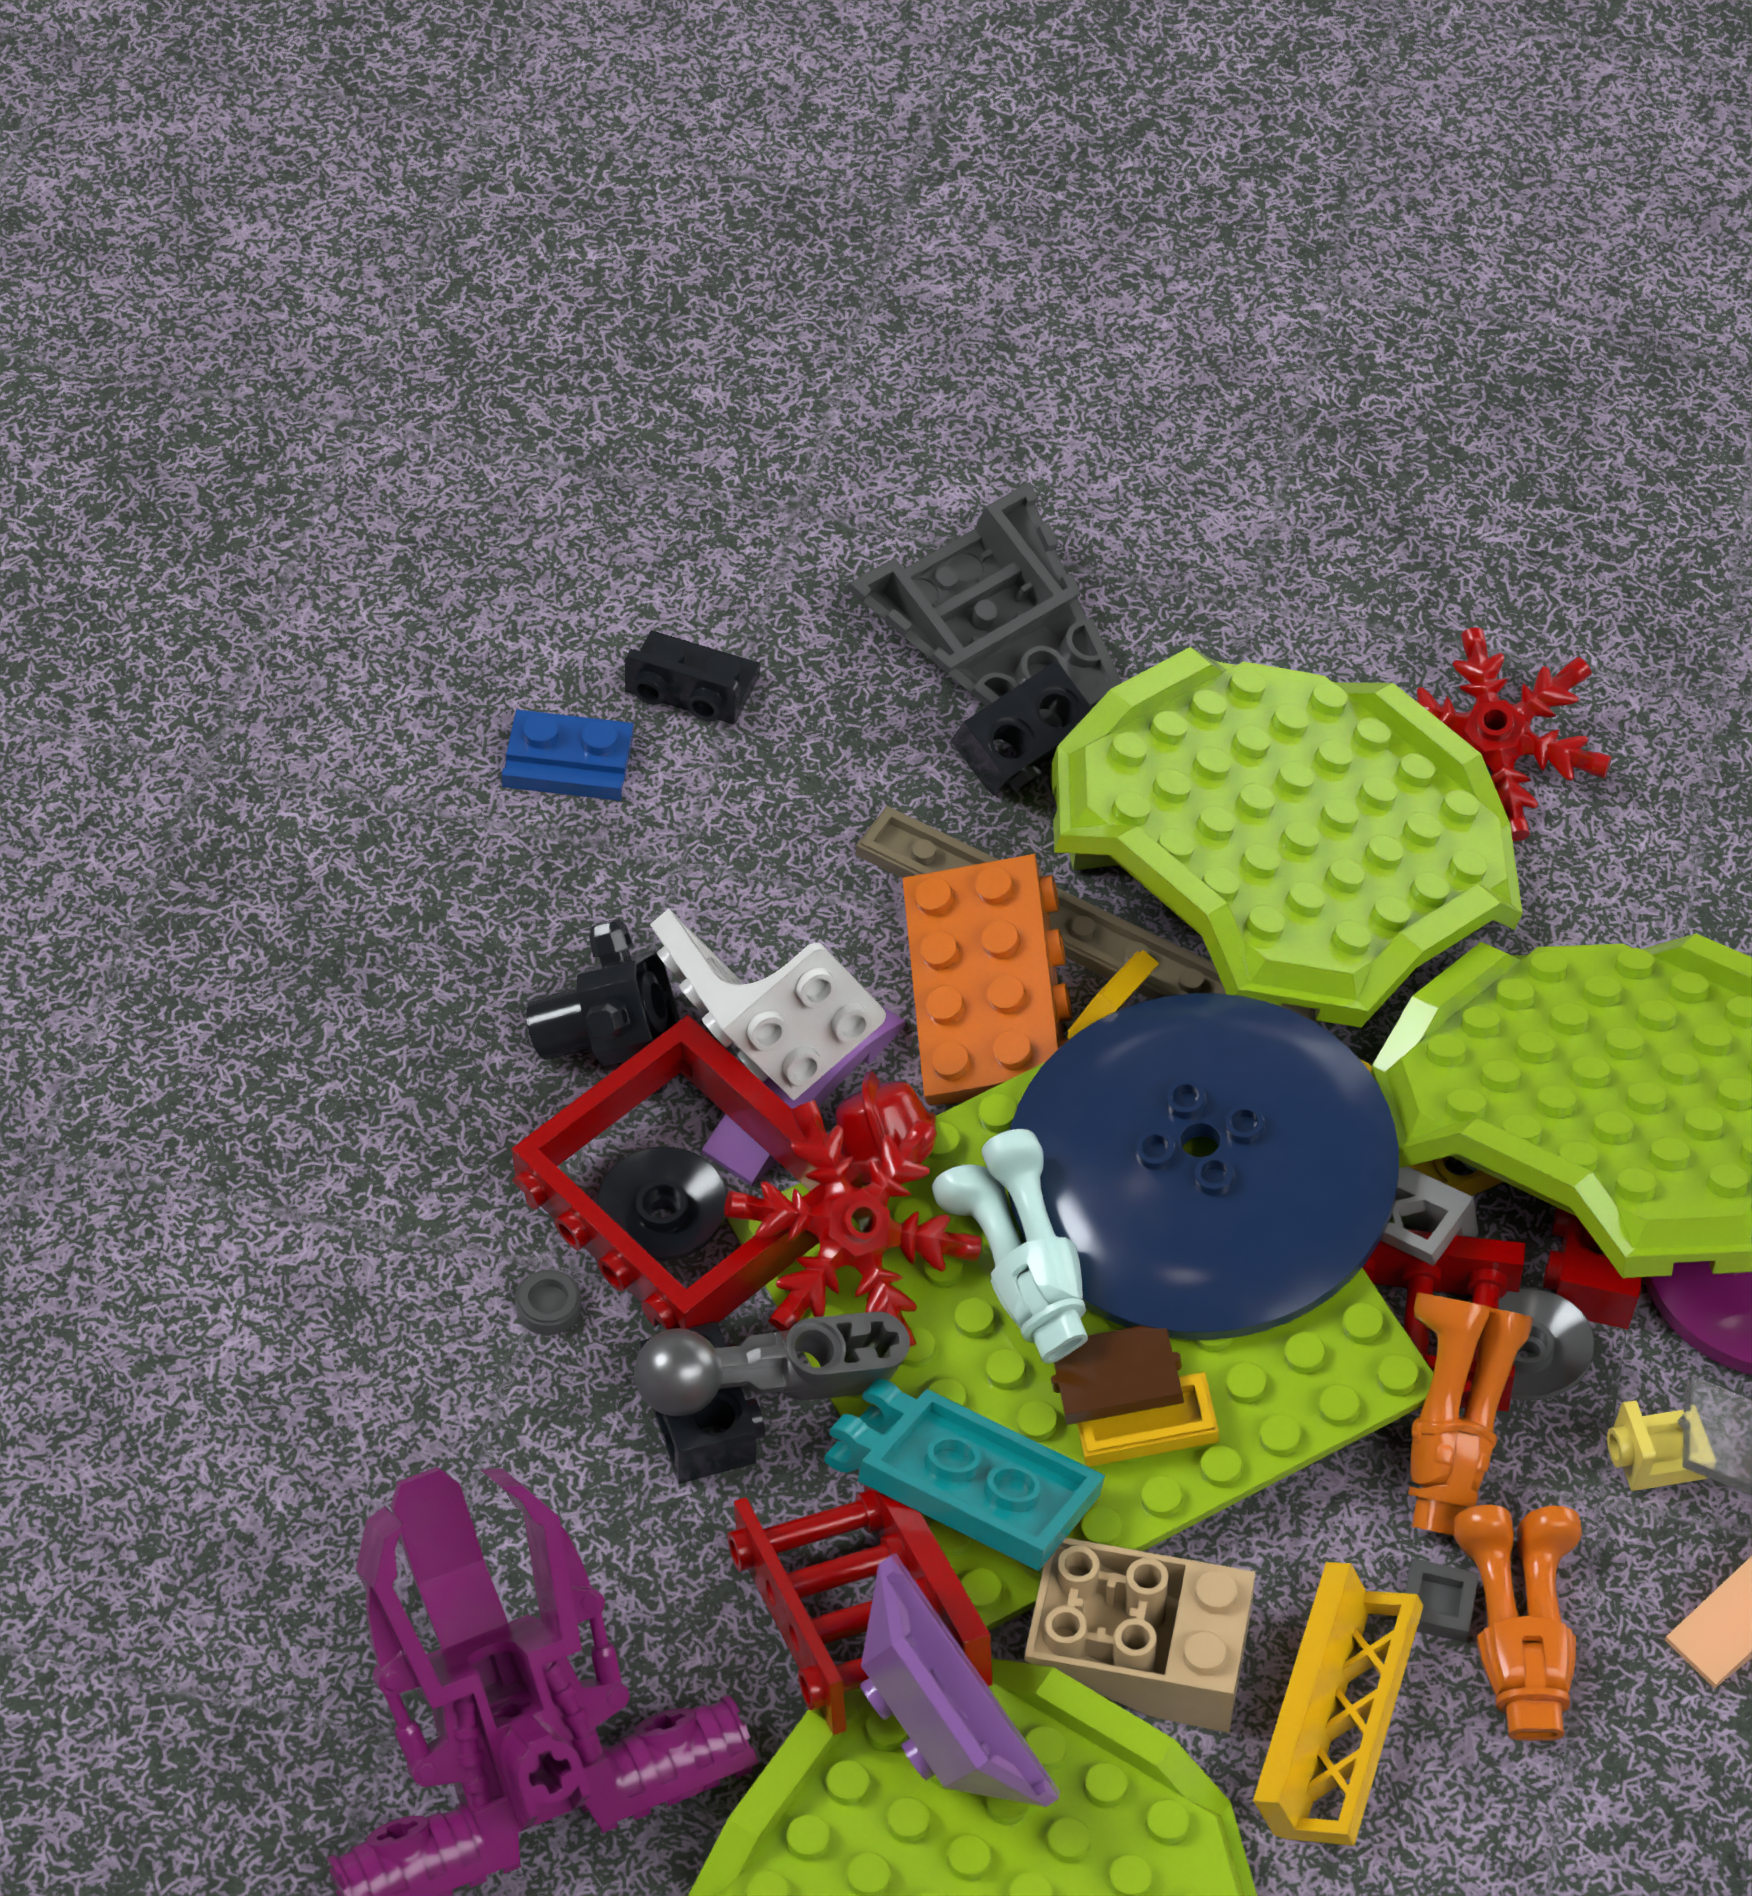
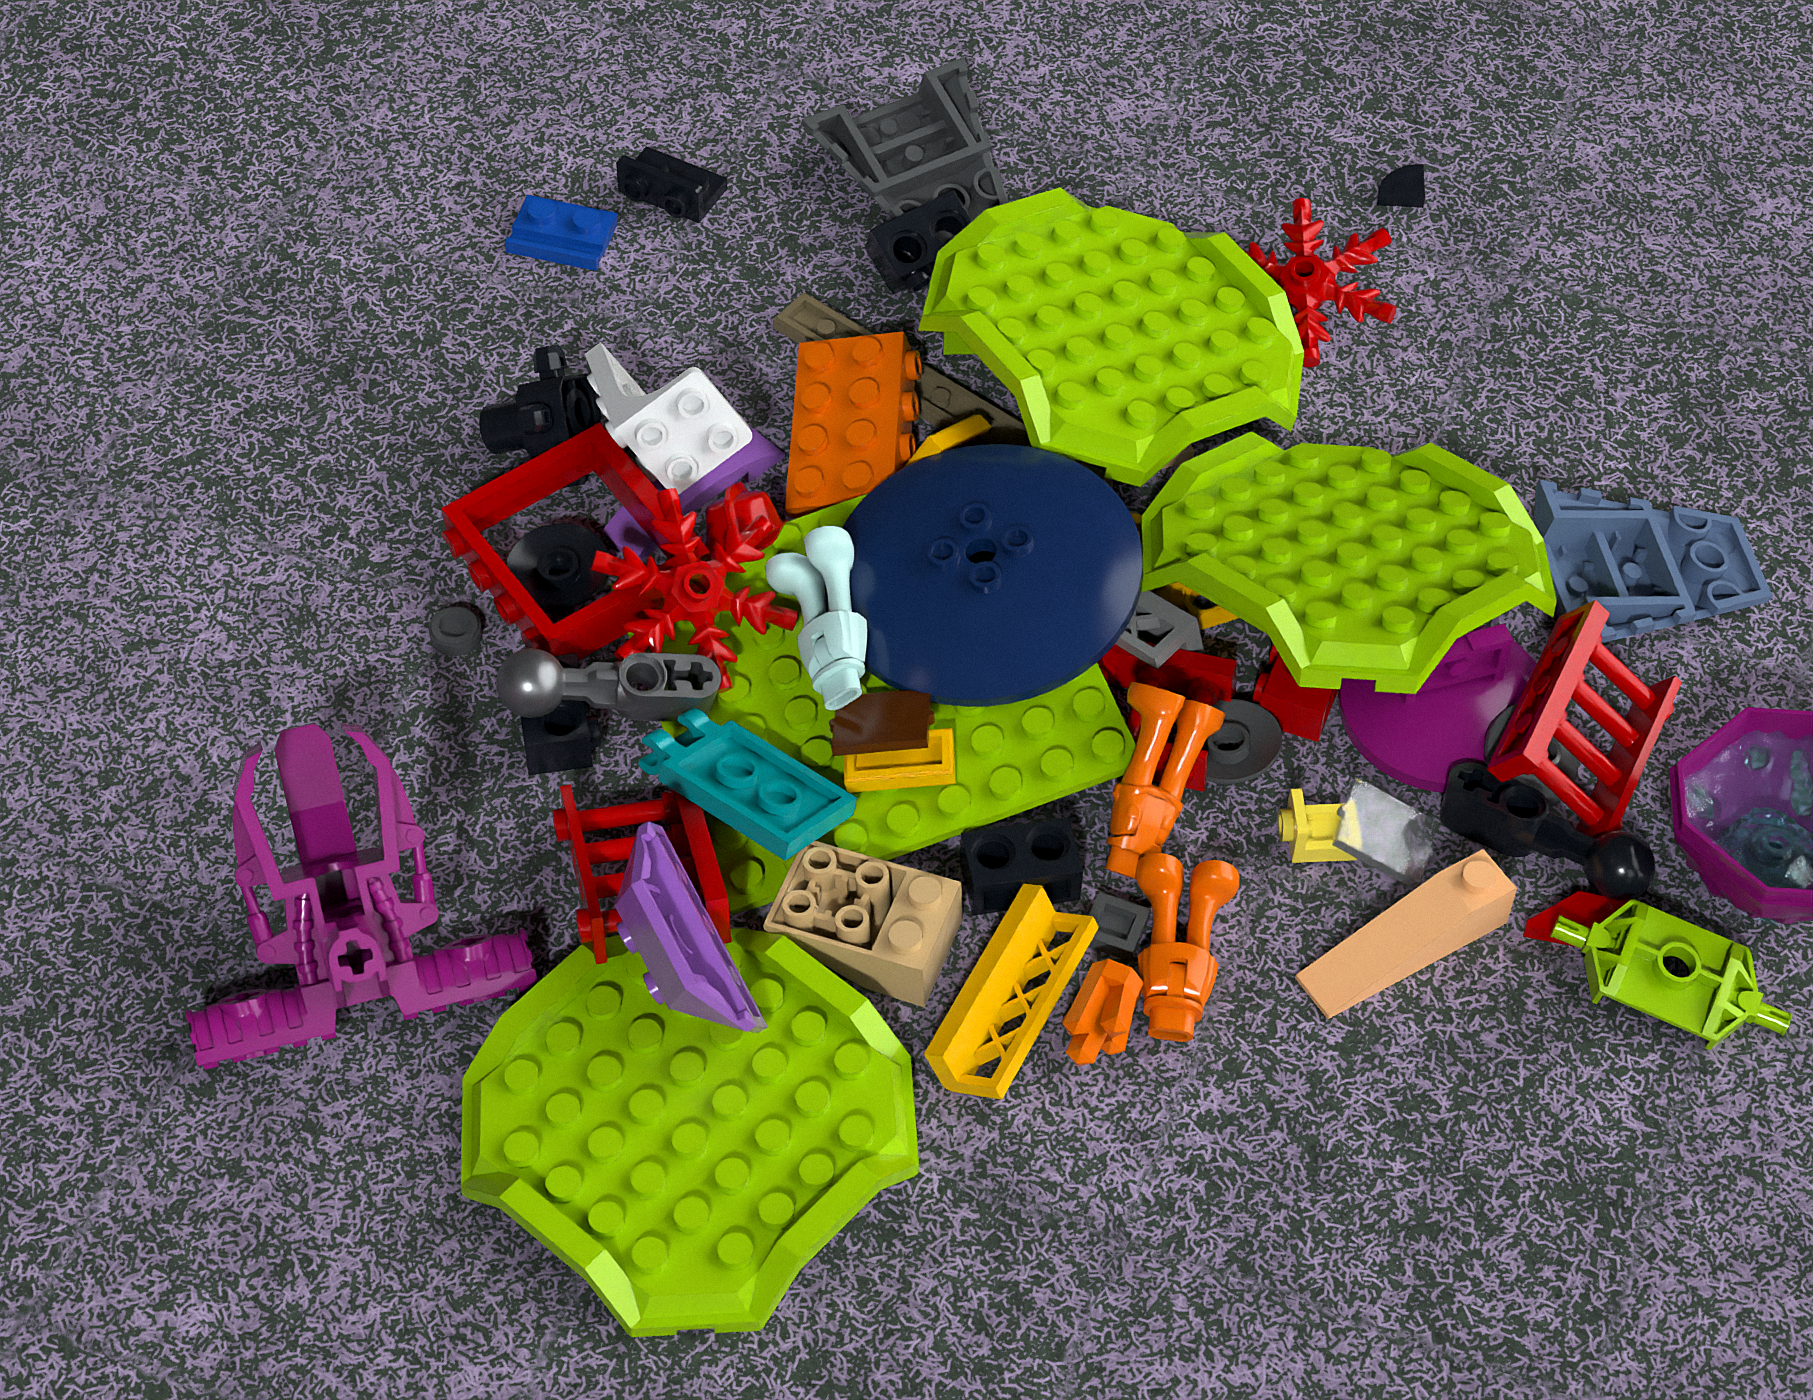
camera: 10 degrees right, 0 degrees up
(1304, 1522) = (1019, 856): none -> black brick
(1451, 1716) = (1102, 1011): none -> orange rock
(1582, 596) = (1403, 187): none -> black tile

